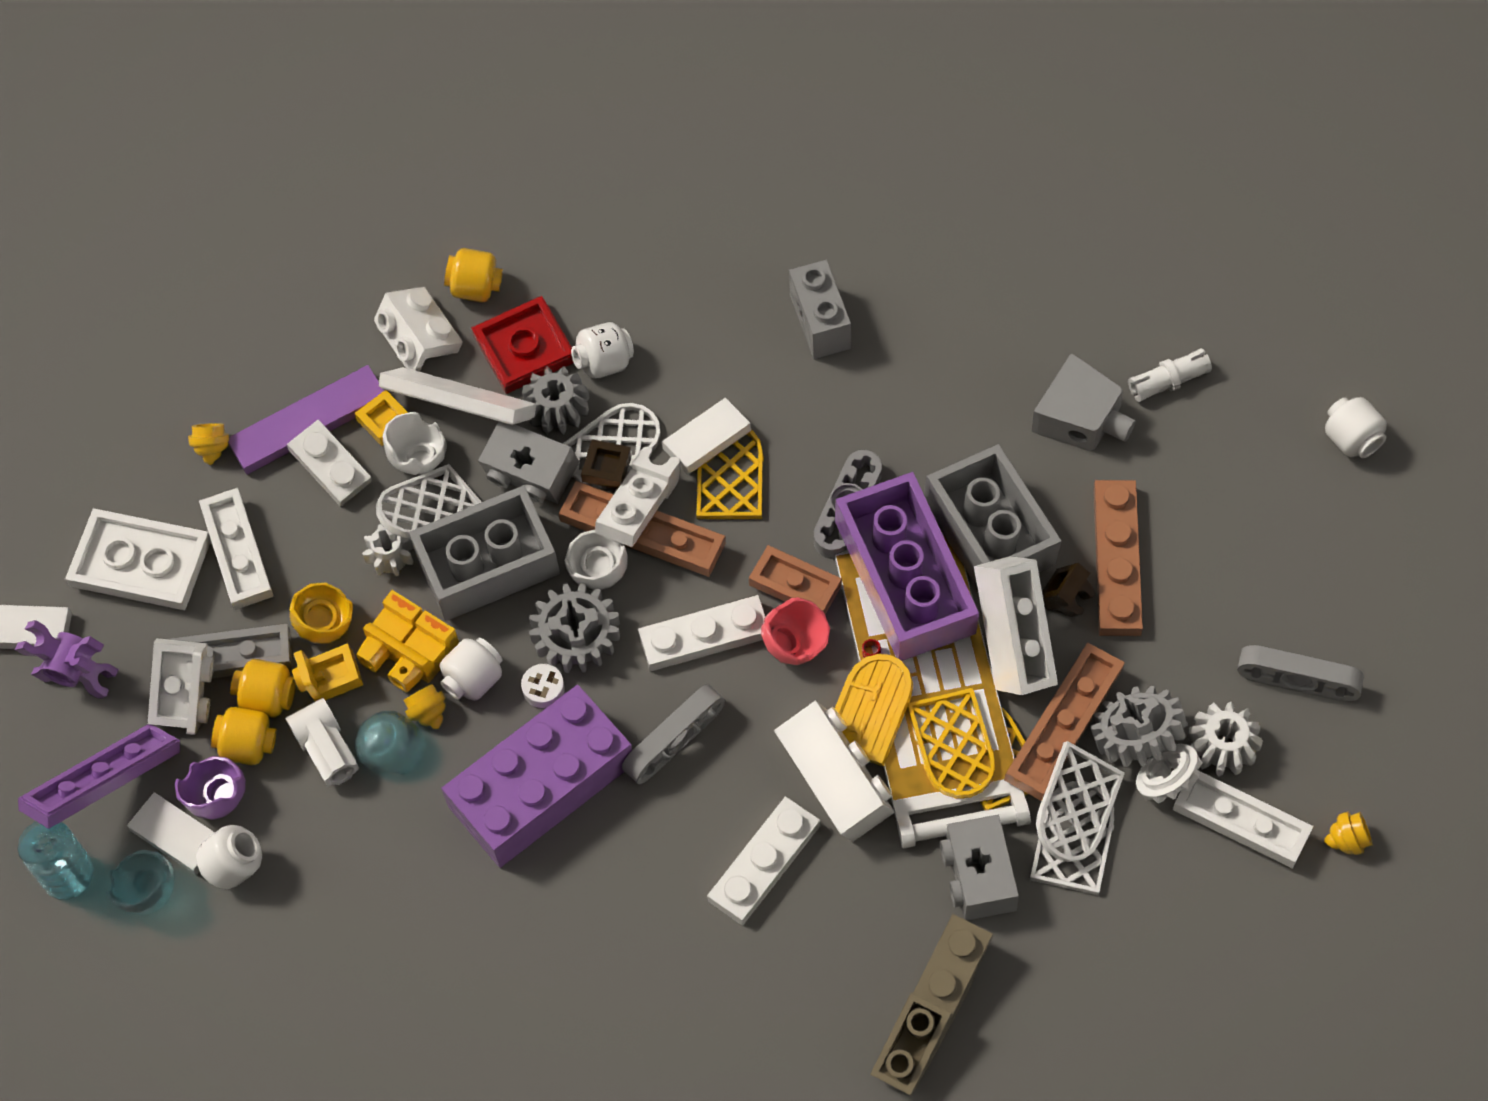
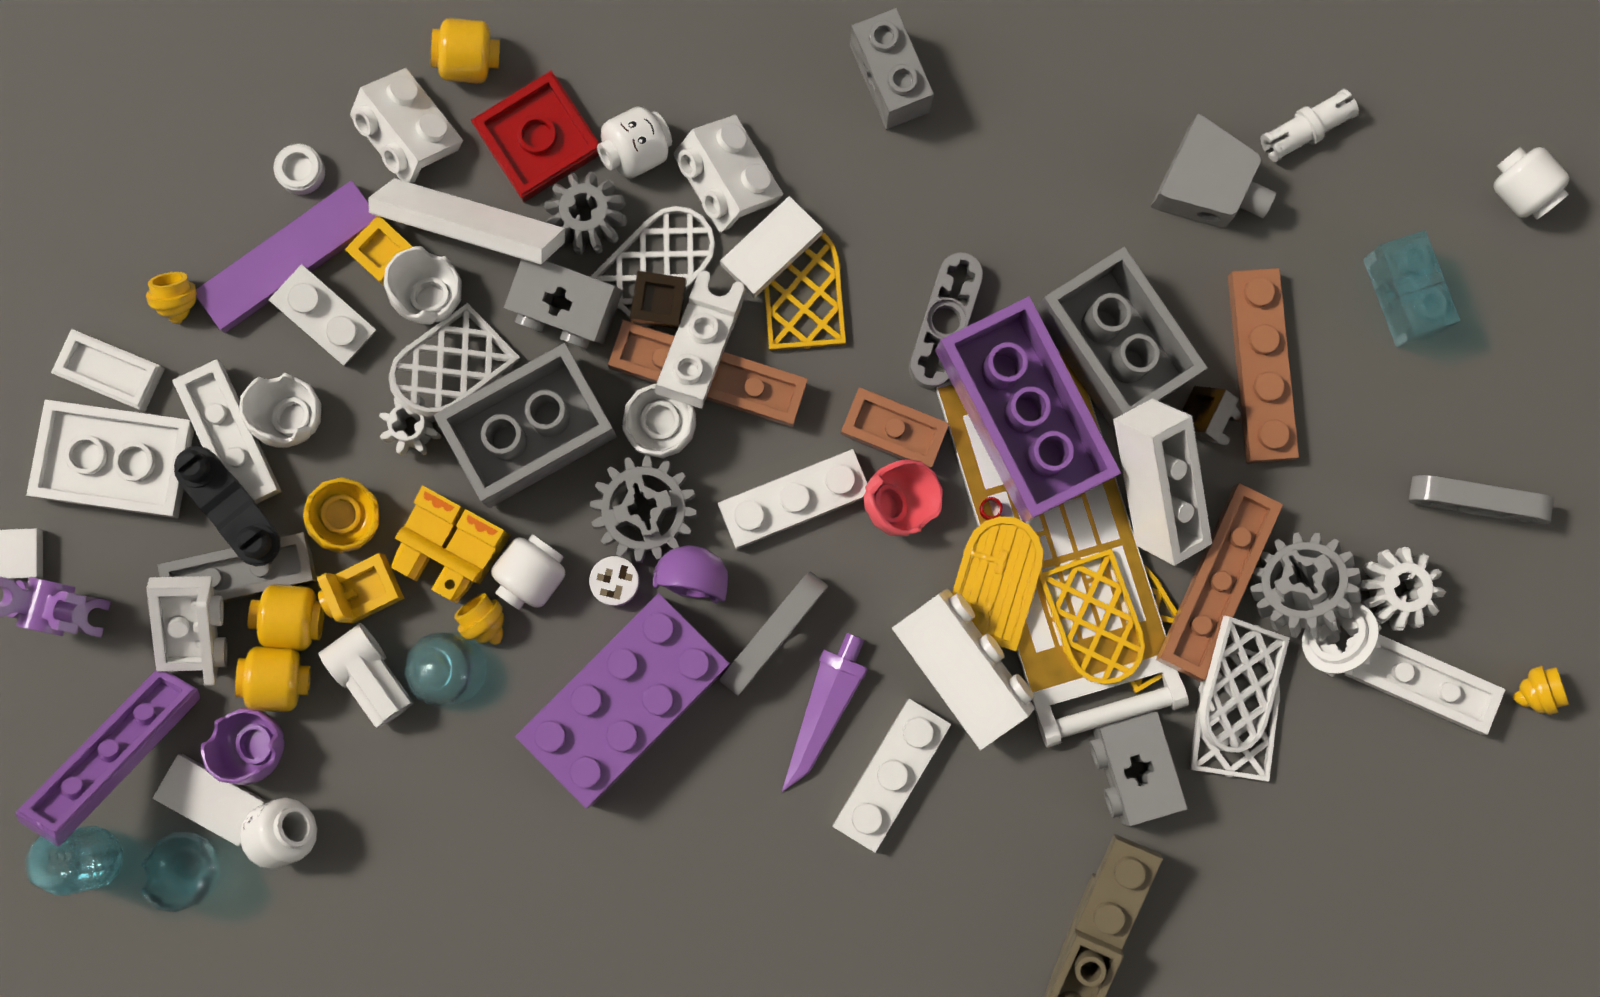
camera: 15 degrees left, 20 degrees up
(146, 494) = (108, 370): none -> white tile
(228, 593) = (227, 505): none -> black piece
(283, 530) = (280, 410): none -> white hair
(326, 356) = (299, 169): none -> white tile
(608, 679) = (692, 573): none -> medium lavender hair
(675, 378) = (726, 171): none -> white bracket
(718, 790) = (831, 693): none -> medium lavender bar
(1247, 501) = (1411, 288): none -> clear light blue brick

